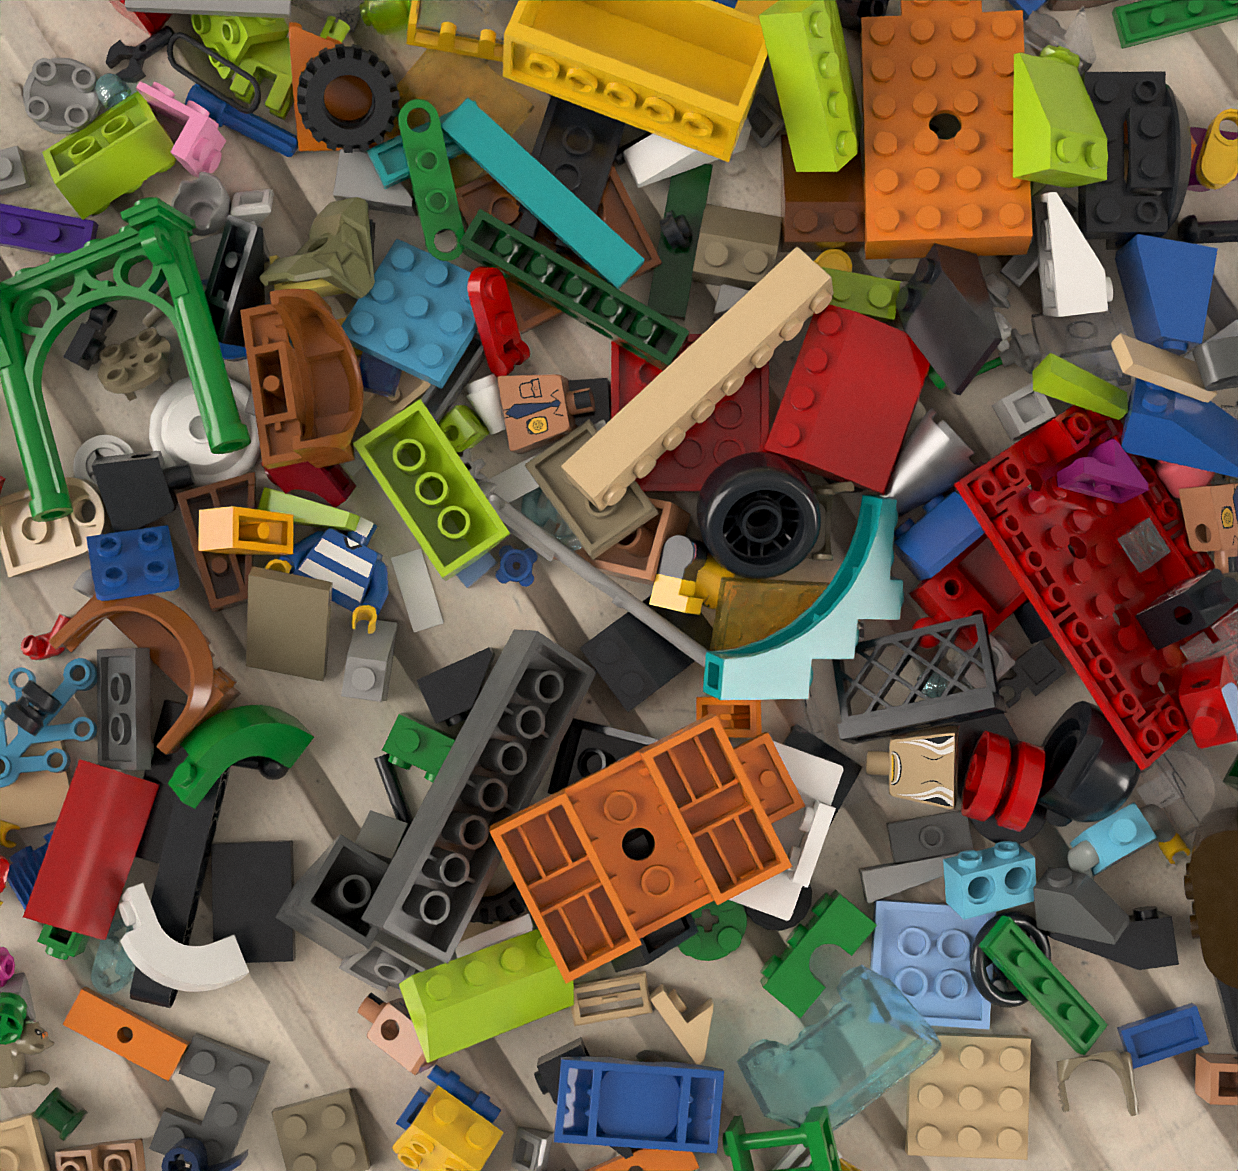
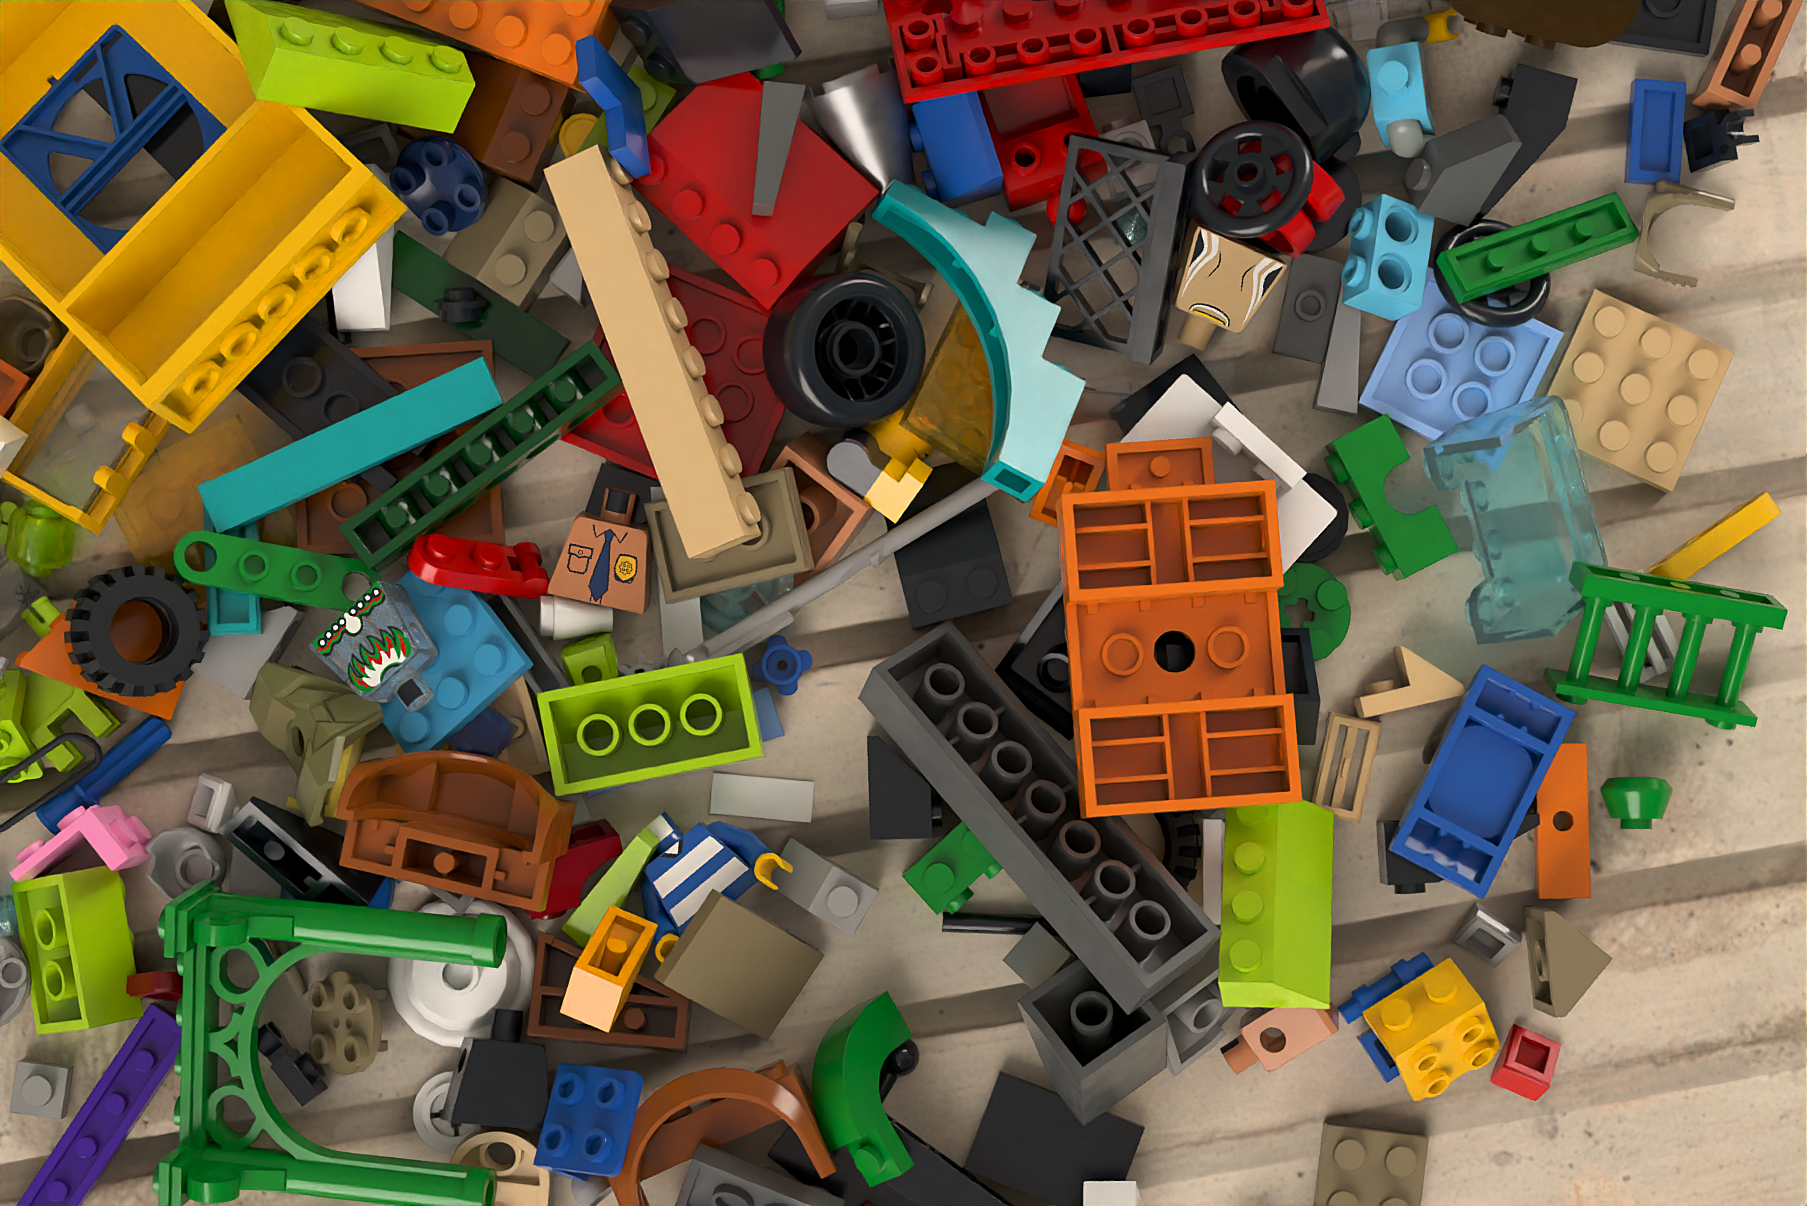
camera: 65 degrees left, 0 degrees up
(105, 217) = (156, 985): none -> dark red tile
(408, 275) = (380, 647): none -> torso
(757, 180) = (440, 184): none -> dark blue dish
(868, 282) = (621, 103): none -> blue tile
(901, 400) = (777, 125): none -> dark grey piece
(975, 770) = (1225, 149): none -> black plate
(1178, 1082) = (1714, 138): none -> black plate

